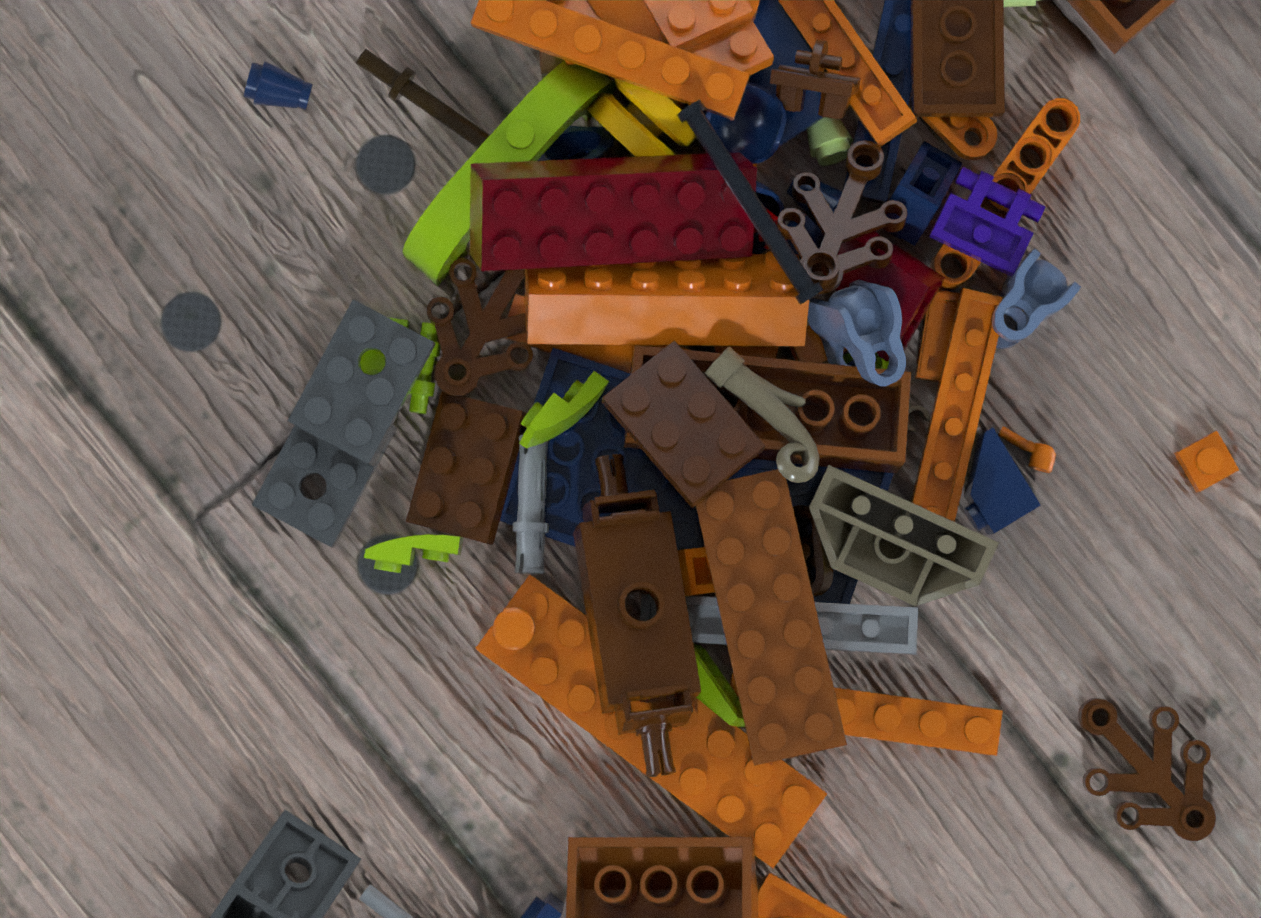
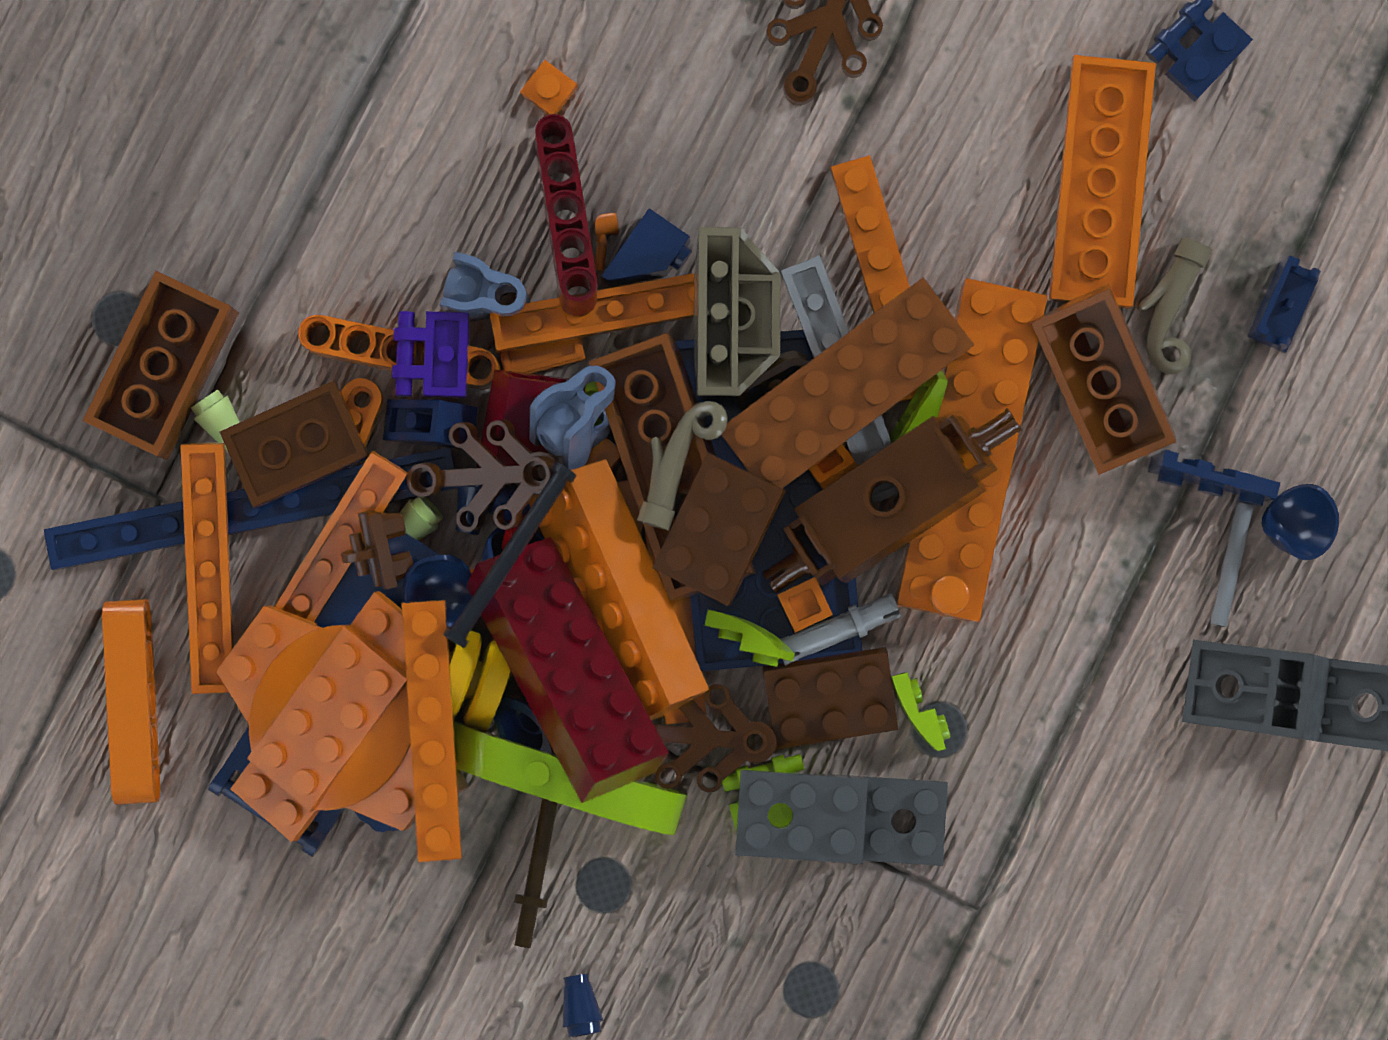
camera: 110 degrees left, 0 degrees up
(570, 481) = (804, 604): none -> orange plate
(1090, 422) = (560, 197): none -> dark red beam

